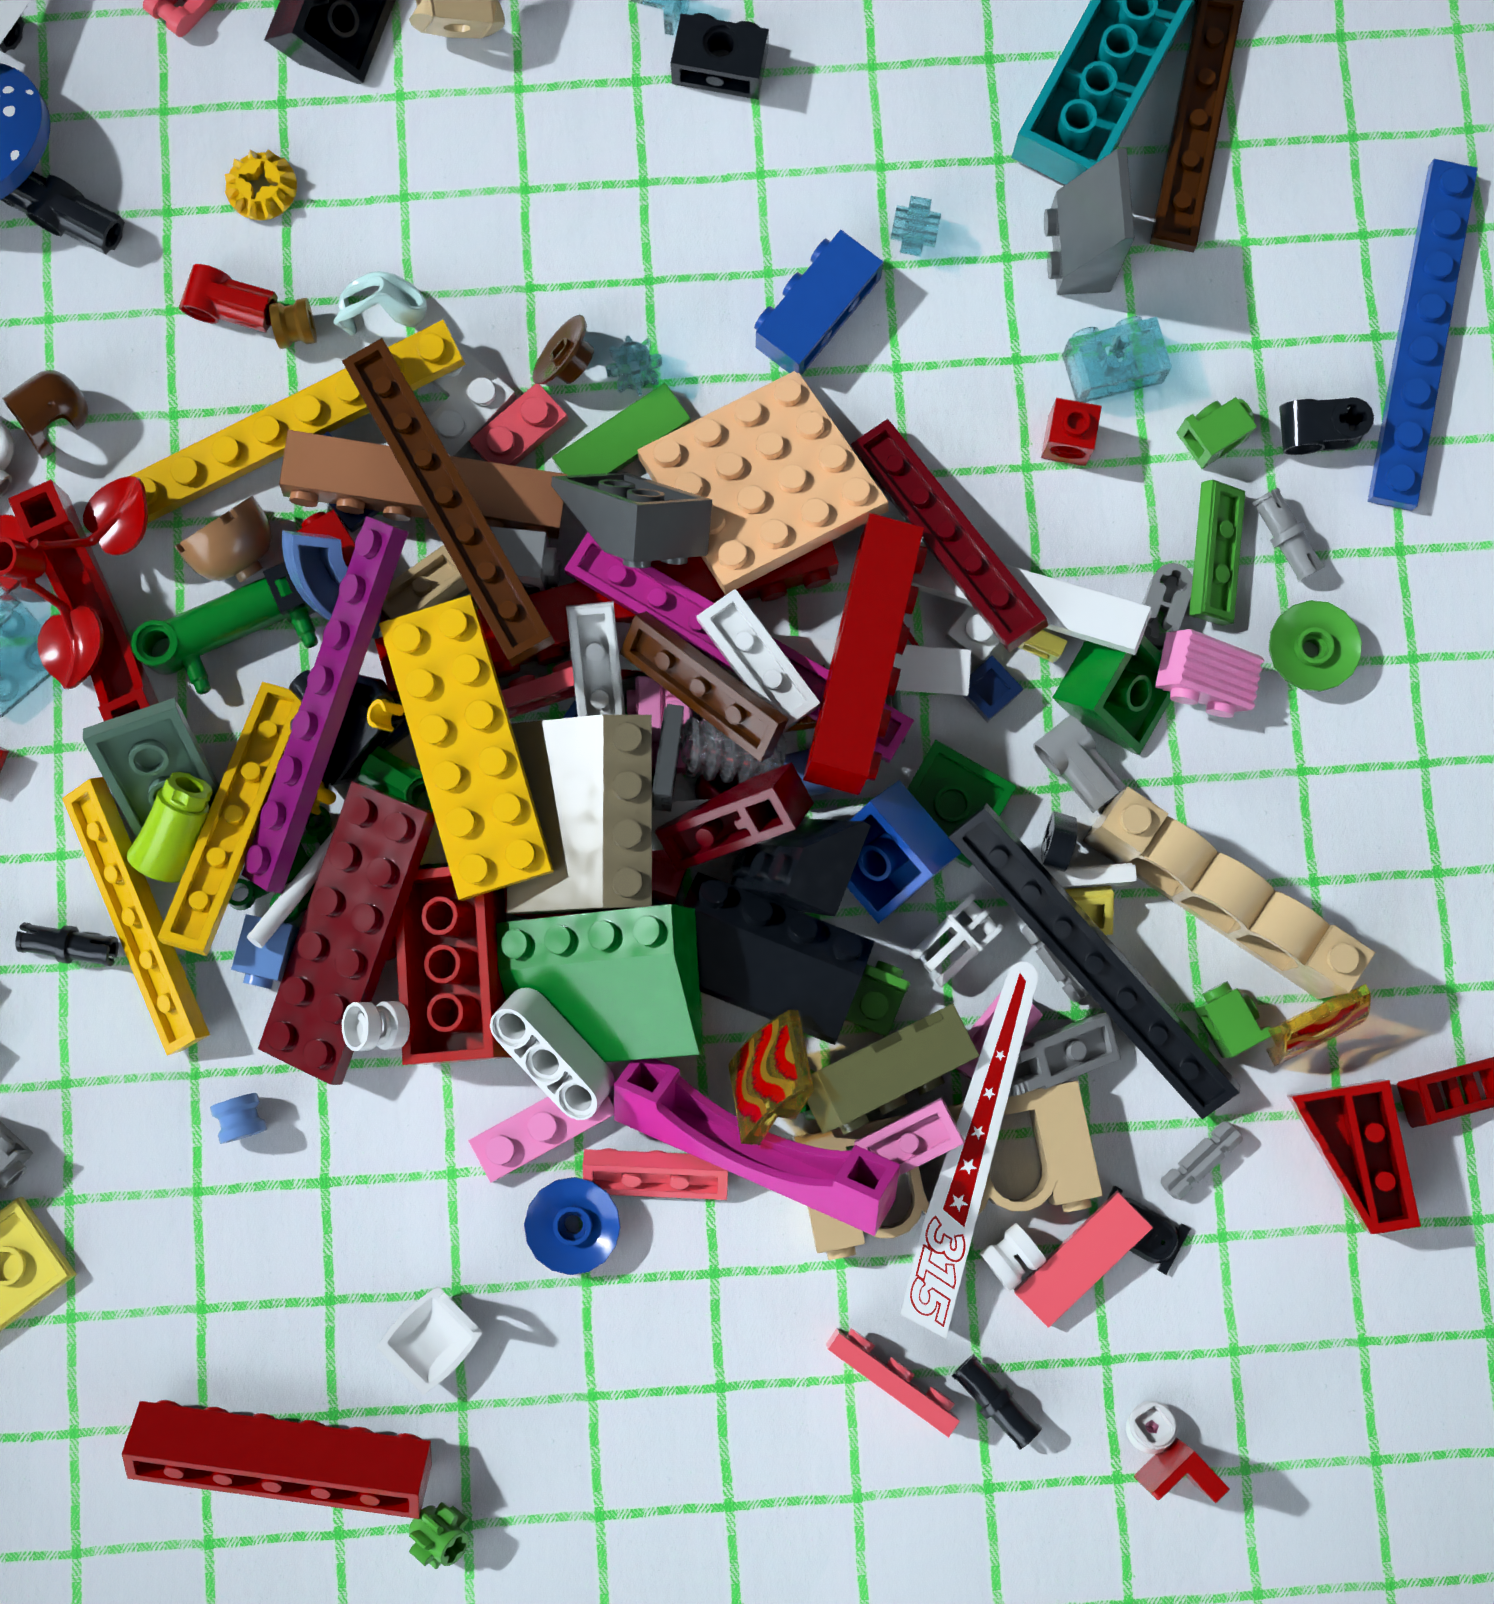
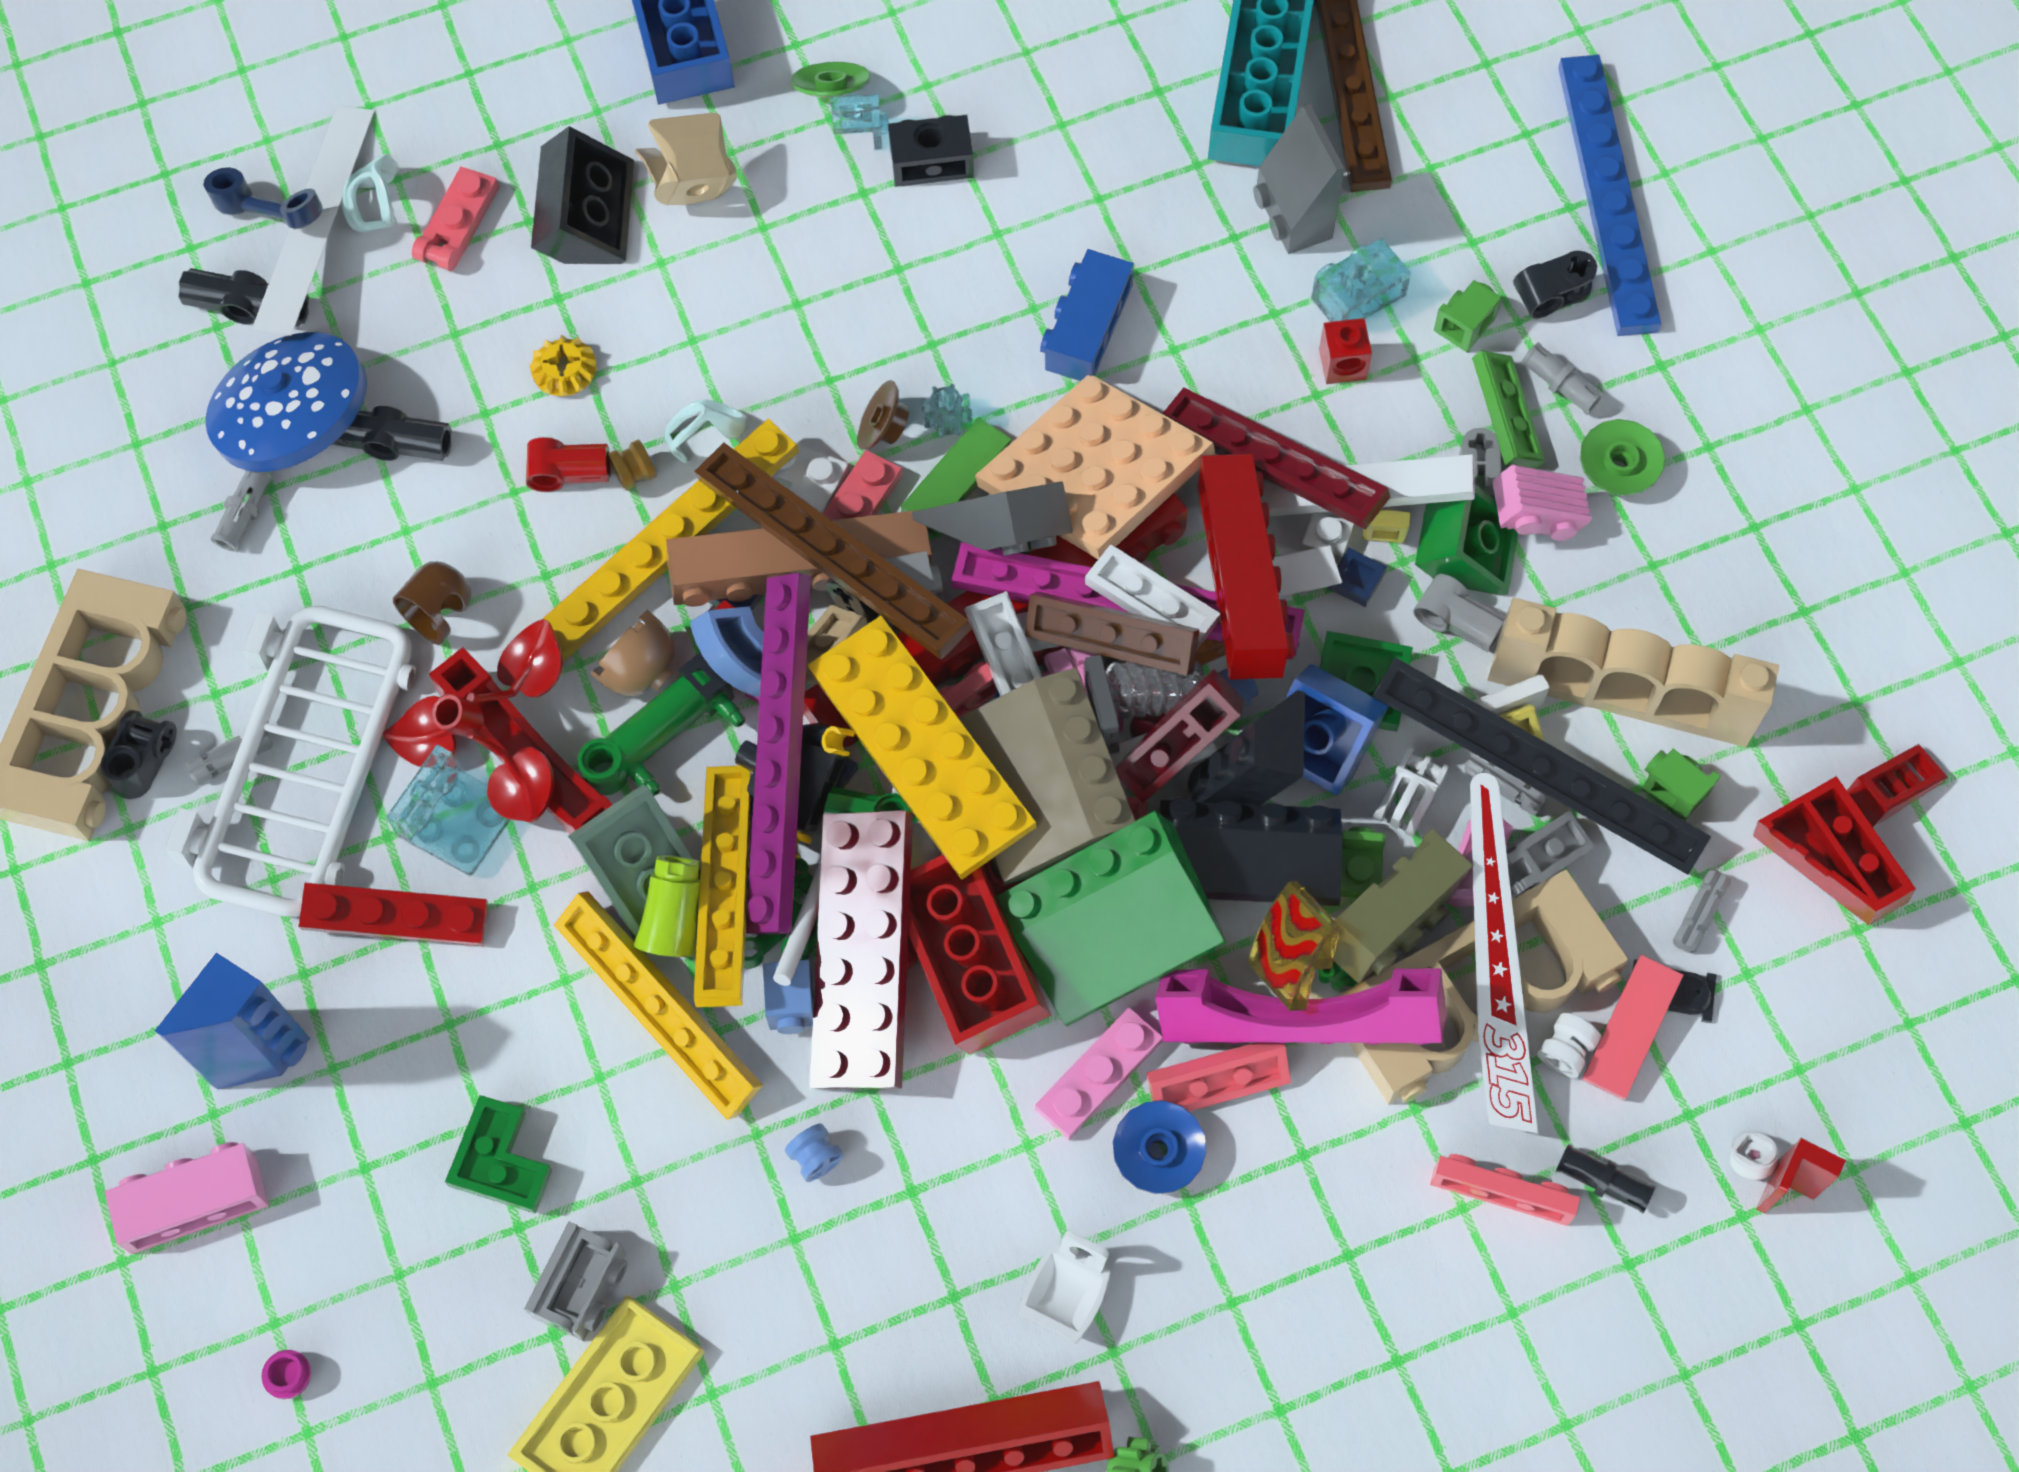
camera: 15 degrees left, 15 degrees down
(67, 944) = (600, 1051): black pin -> none
(373, 1025) = (920, 1014): white wheel -> none
(552, 1053) = (1101, 1009): white beam -> none
(915, 226) = (1149, 231): clear light blue gear -> none
(915, 1136) = (1449, 948): bright pink plate -> none
(1059, 841) = (1469, 676): black beam -> none
(1319, 1024) = (1756, 756): clear yellow slope -> none

